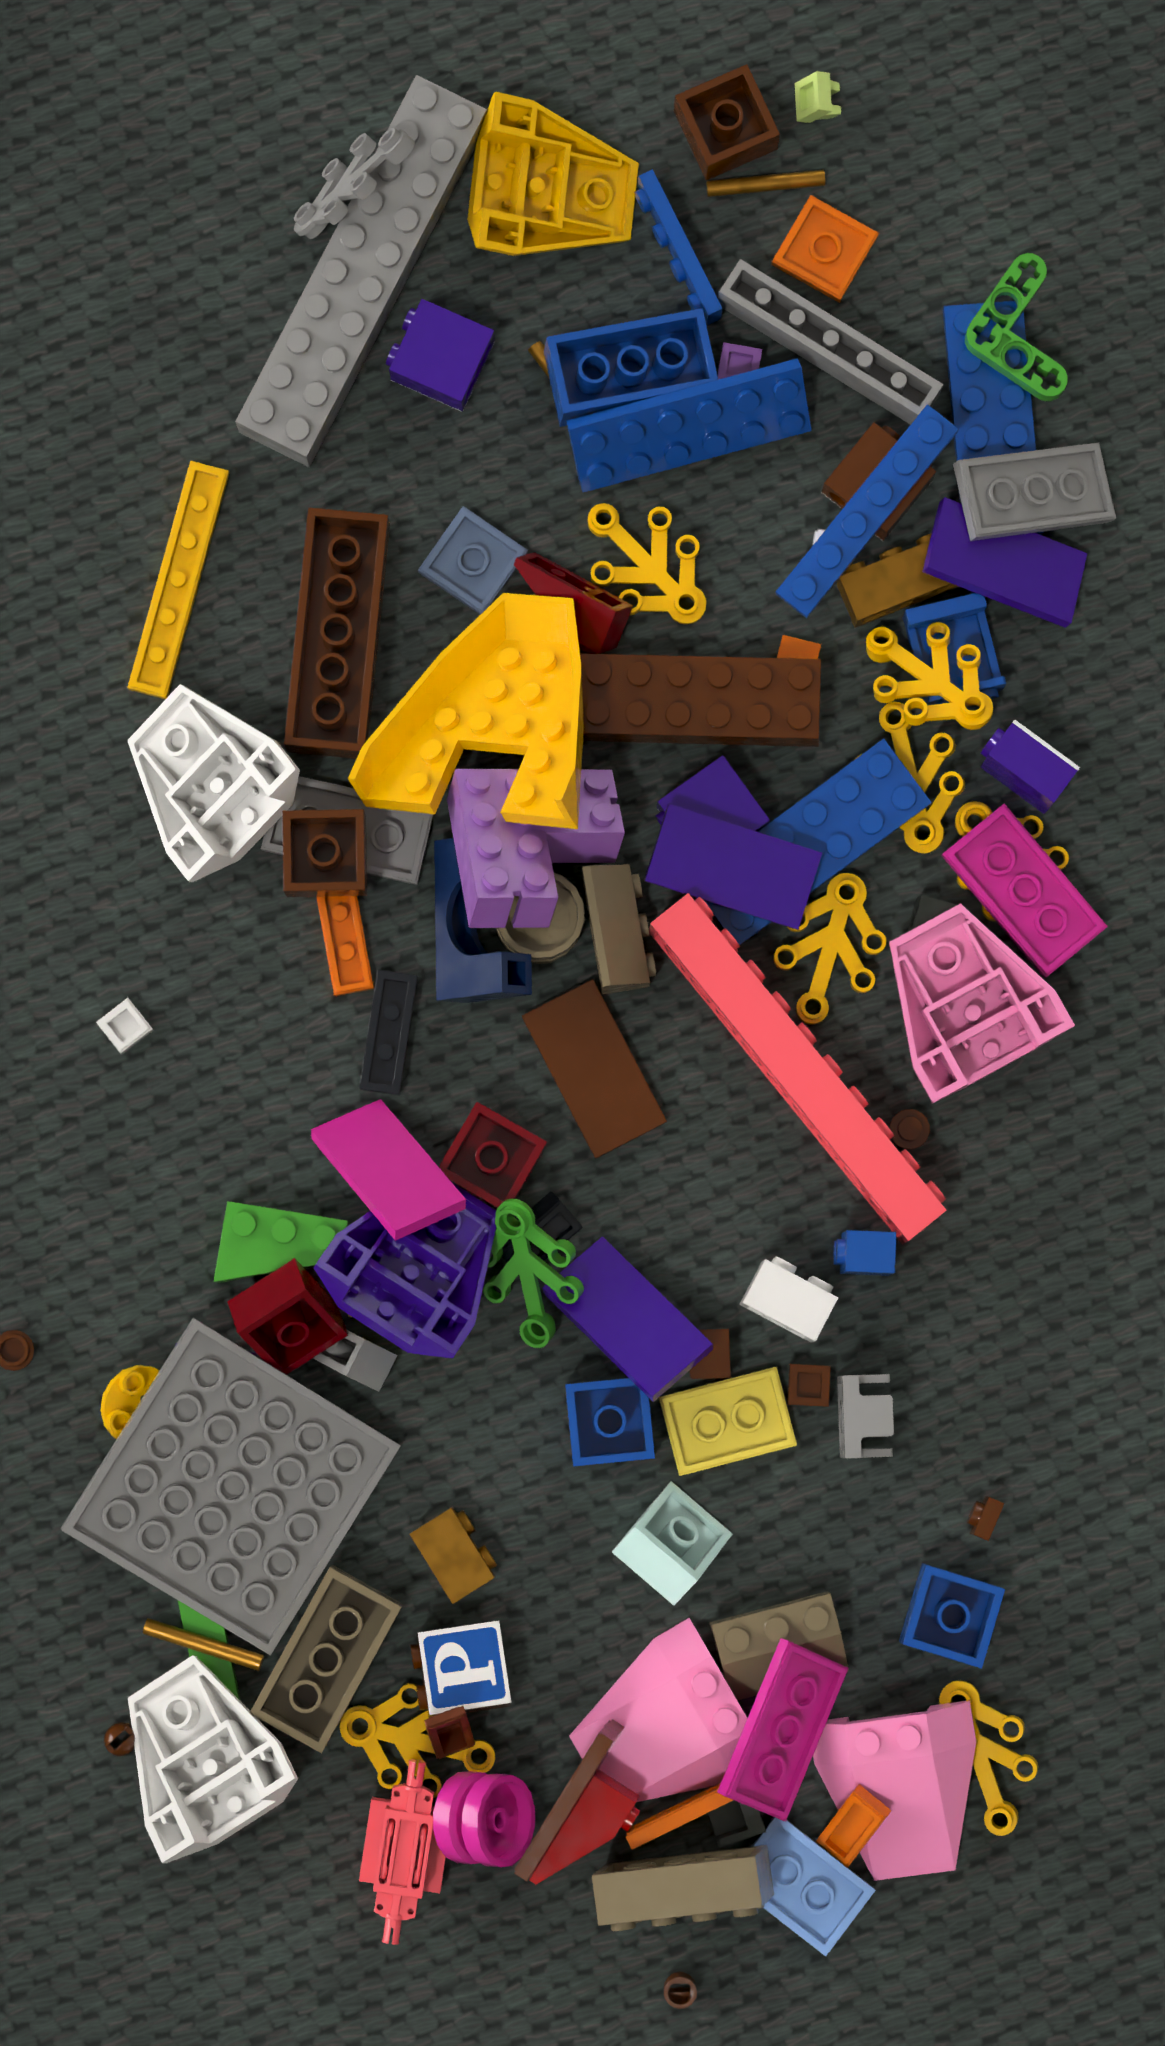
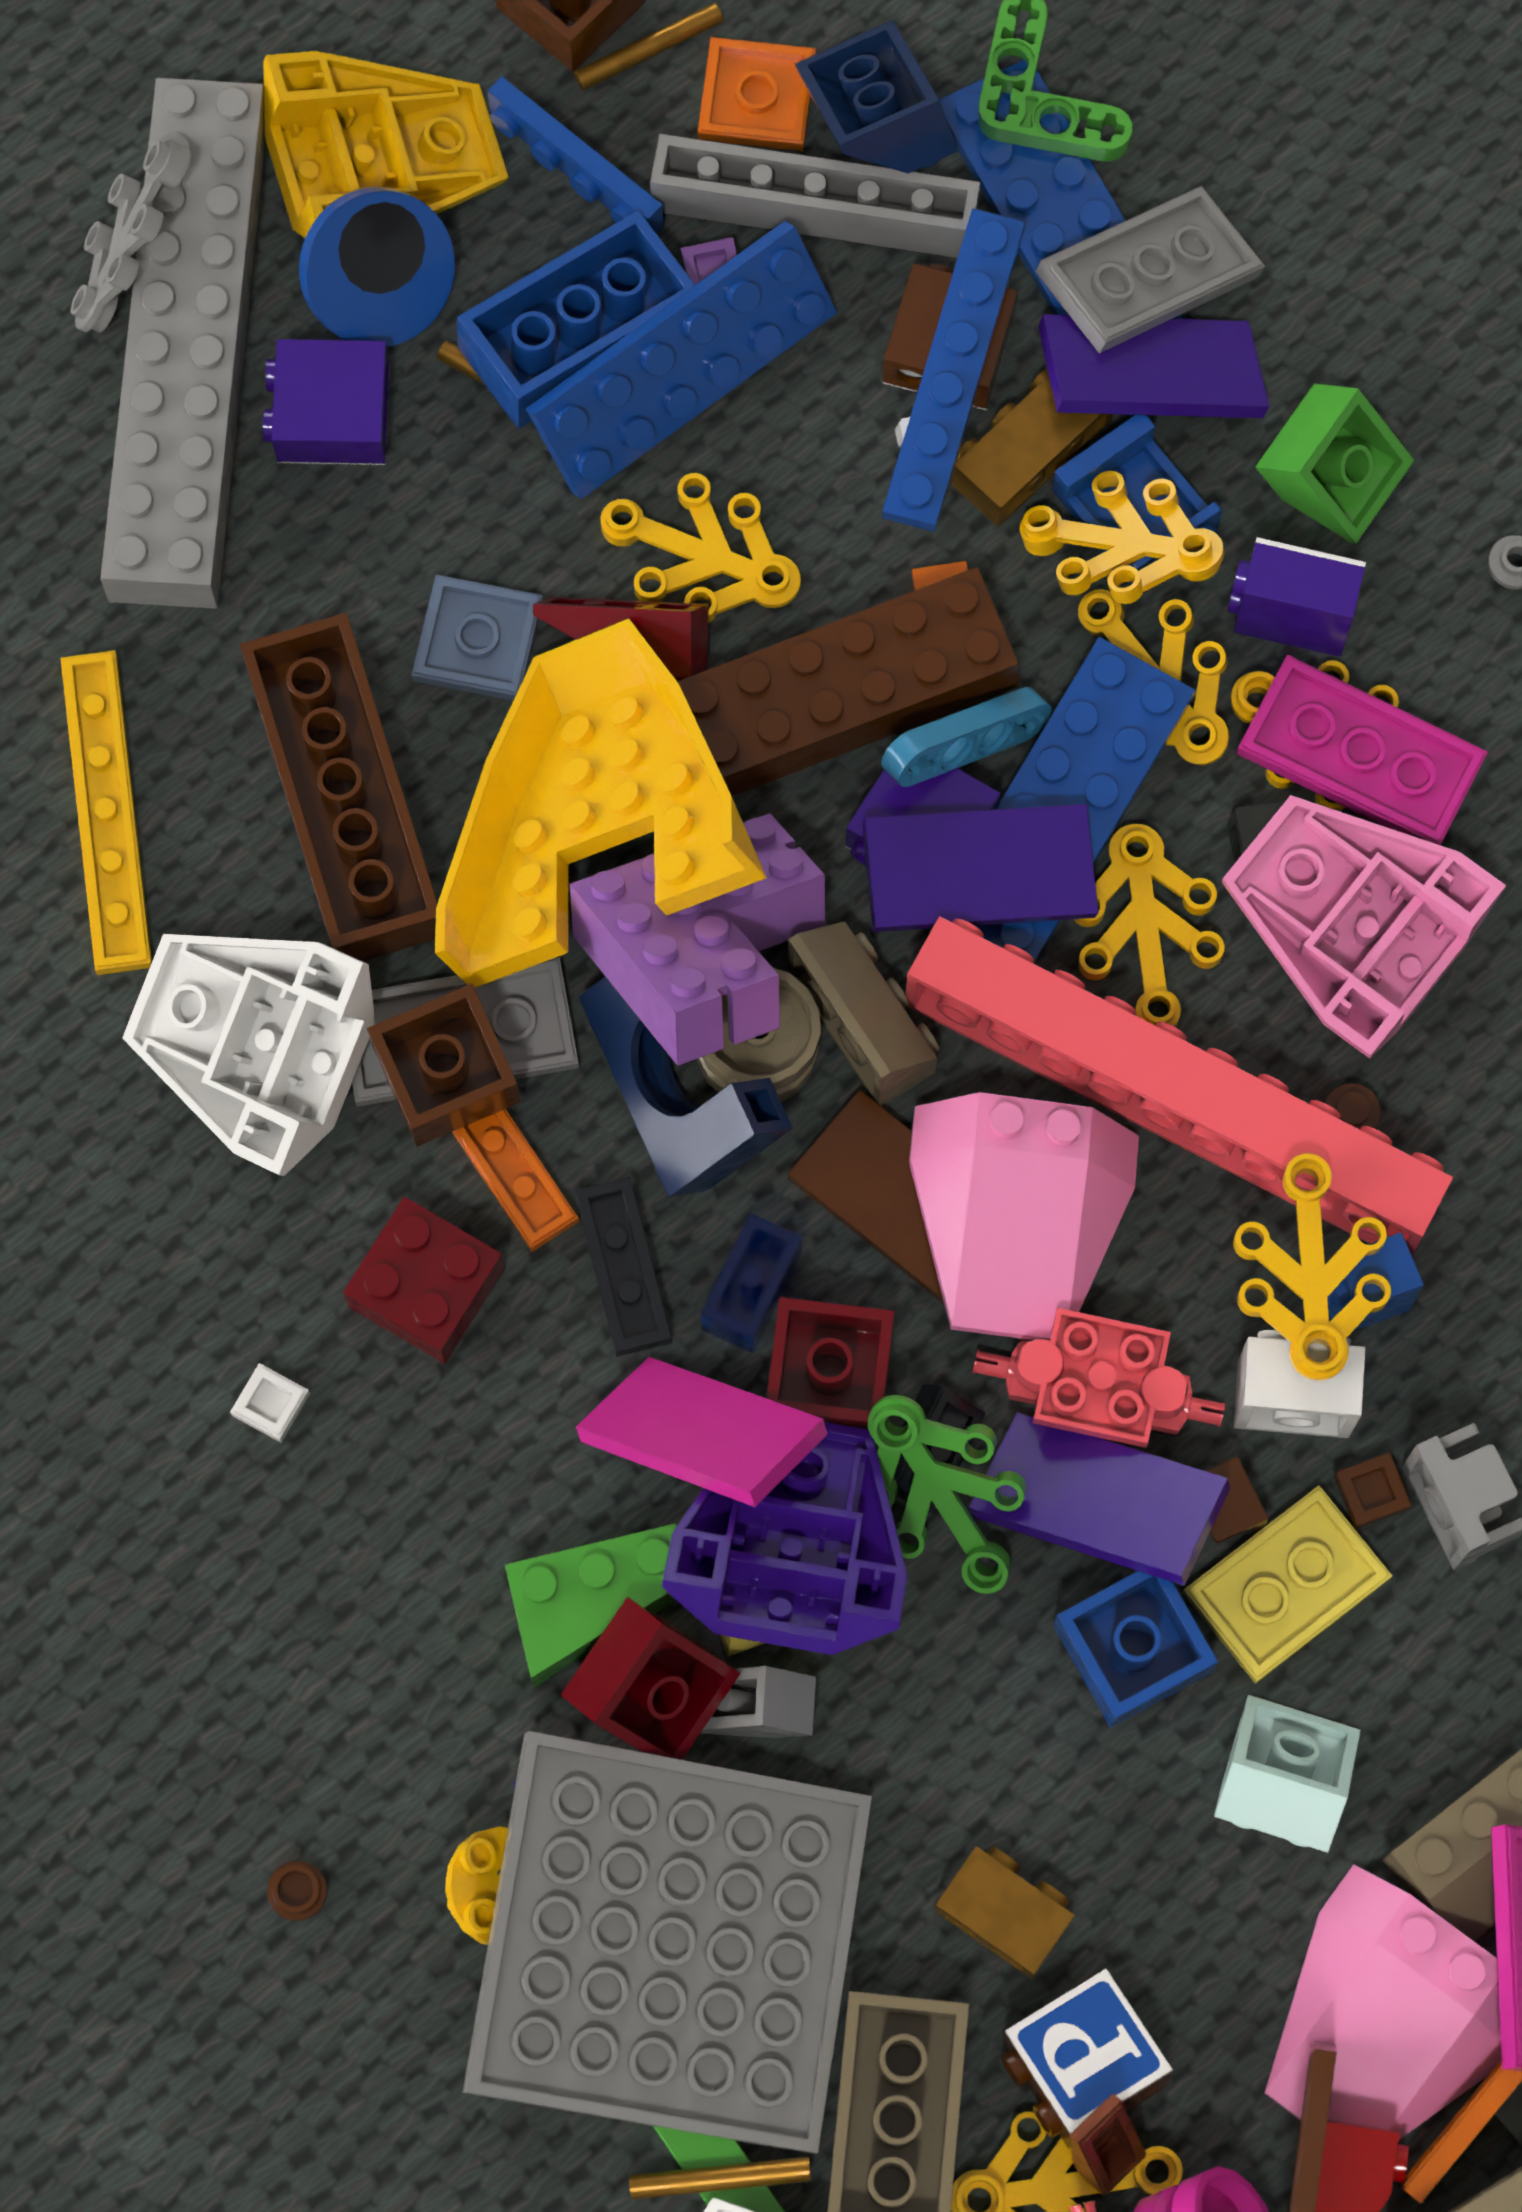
camera: 20 degrees left, 10 degrees down
(255, 989) = (424, 1280): none -> dark red brick
(465, 1081) = (751, 1283): none -> clear blue brick
(510, 274) = (377, 266): none -> blue piece
(661, 1104) = (1018, 1205): none -> bright pink wedge
(663, 1241) = (1100, 1380): none -> coral piece
(763, 772) = (966, 736): none -> dark azure beam
(823, 1240) = (1312, 1277): none -> yellow plant
(898, 296) = (879, 101): none -> dark blue slope
(1100, 678) = (1335, 460): none -> bright green slope

